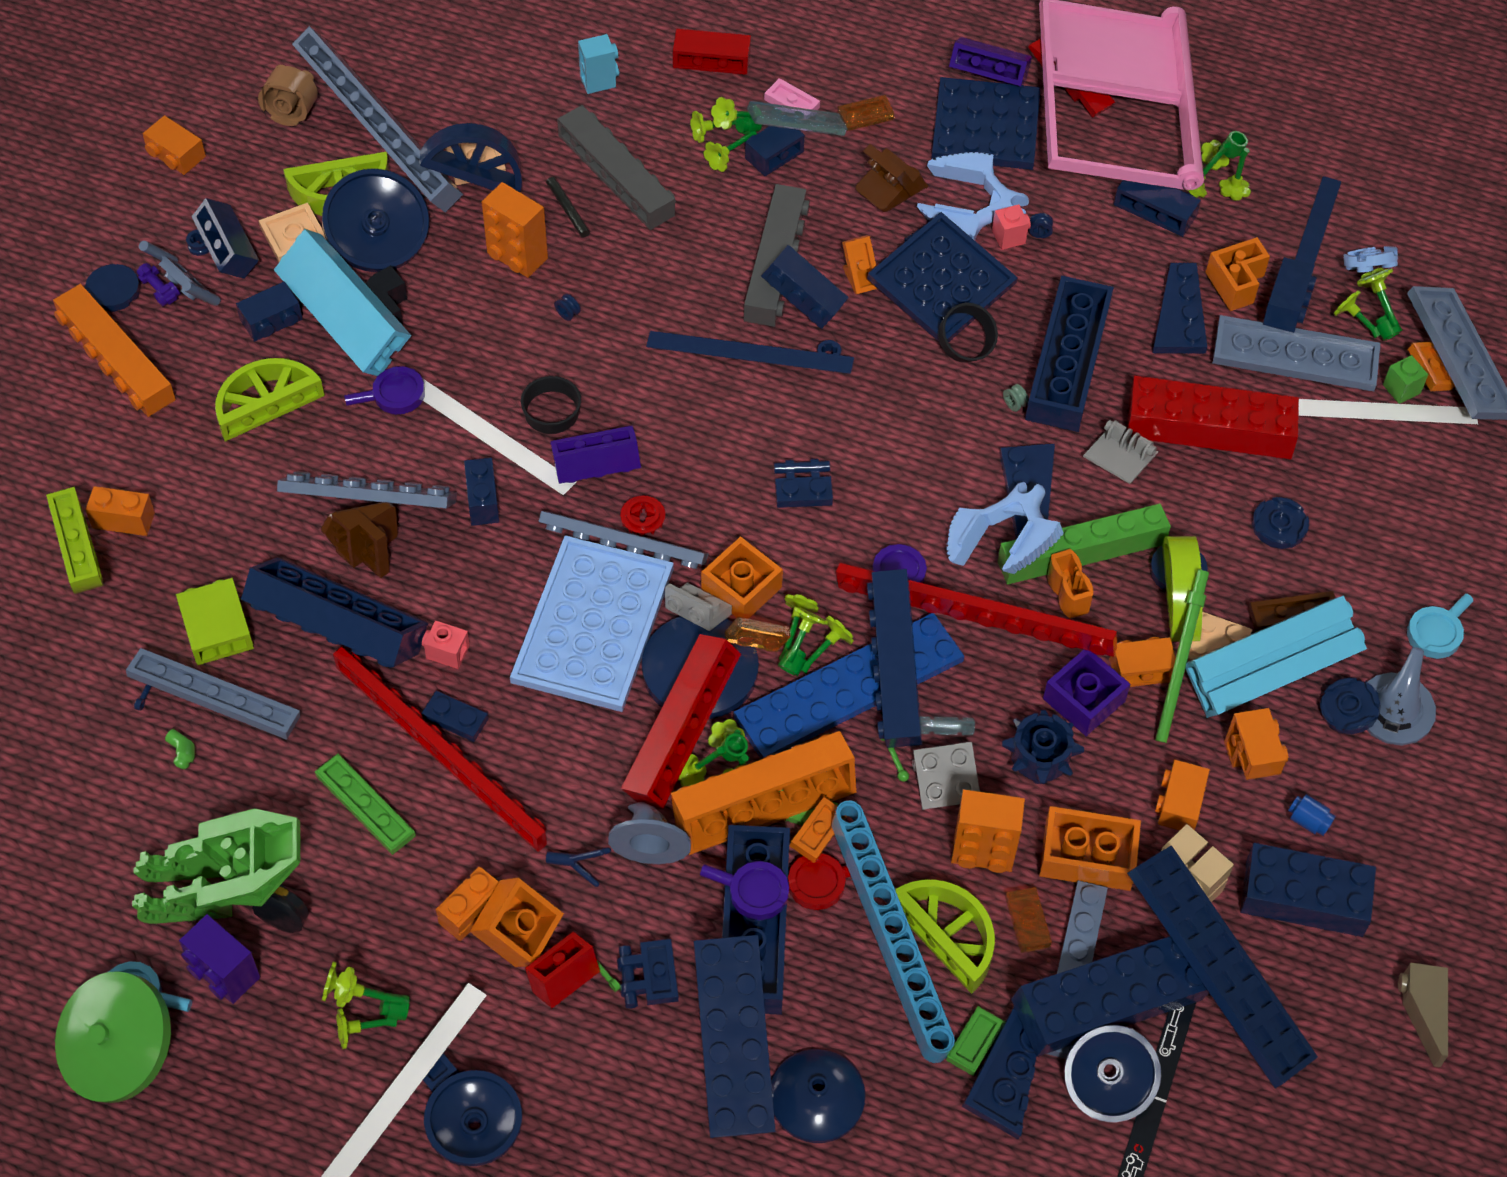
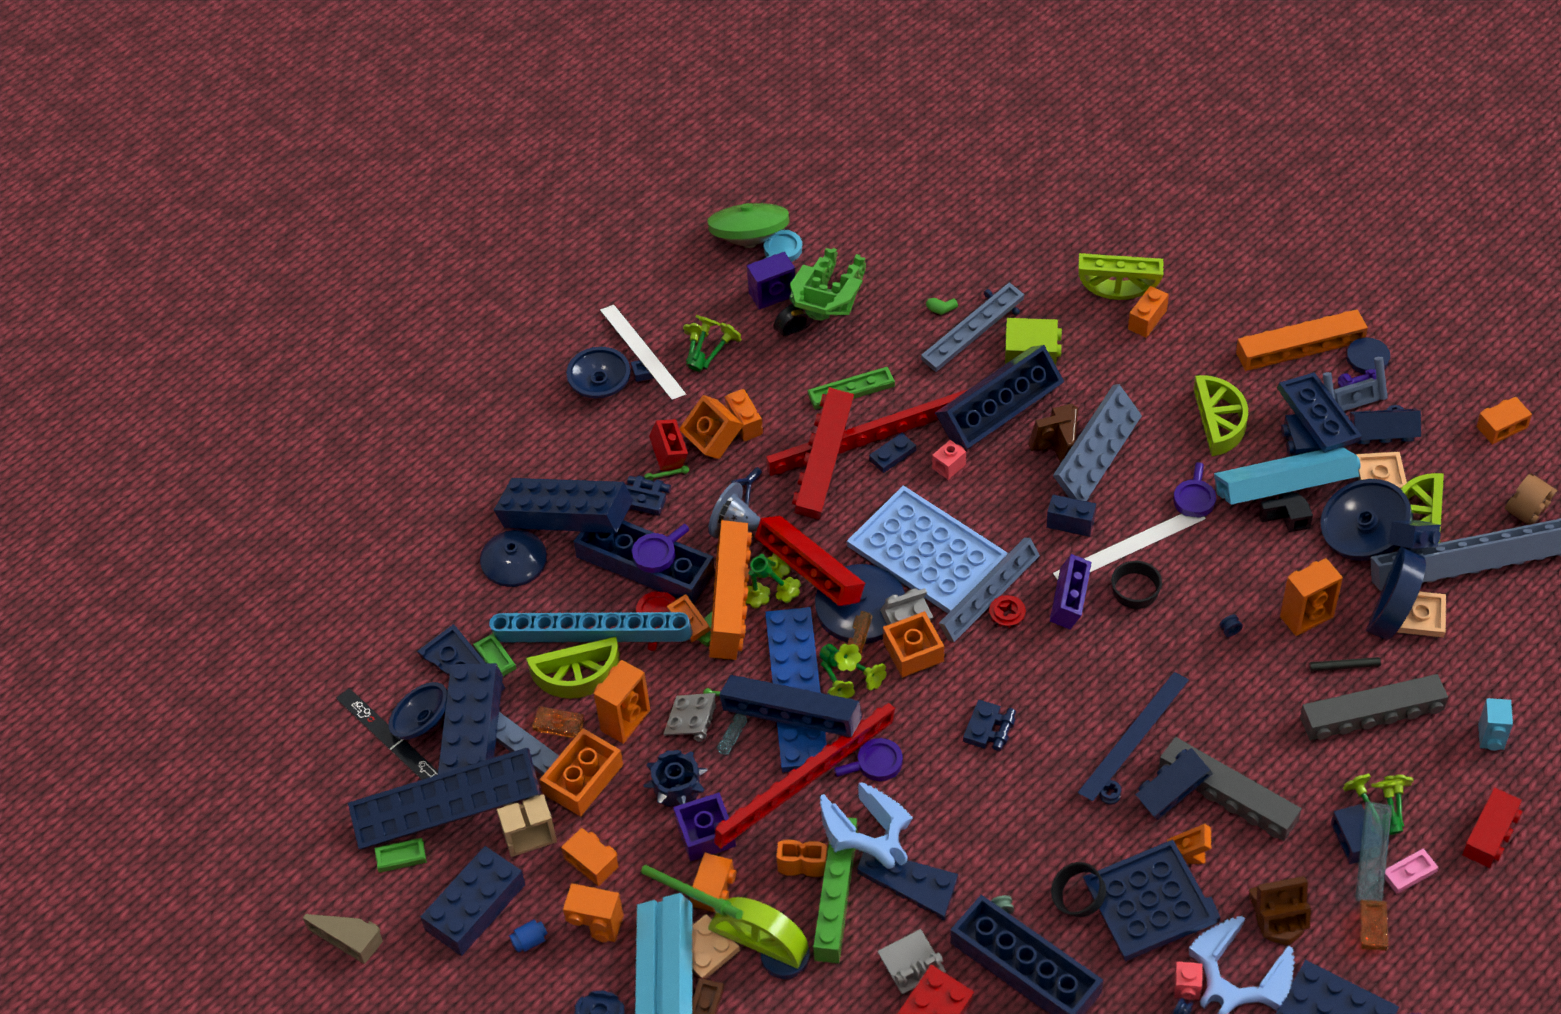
camera: 120 degrees right, 5 degrees down
(239, 289) = (1319, 412): none -> dark blue plate
(398, 154) = (1414, 534): none -> dark blue brick
(508, 767) = (823, 454): none -> red brick
(1299, 1008) = (400, 855): none -> bright green tile

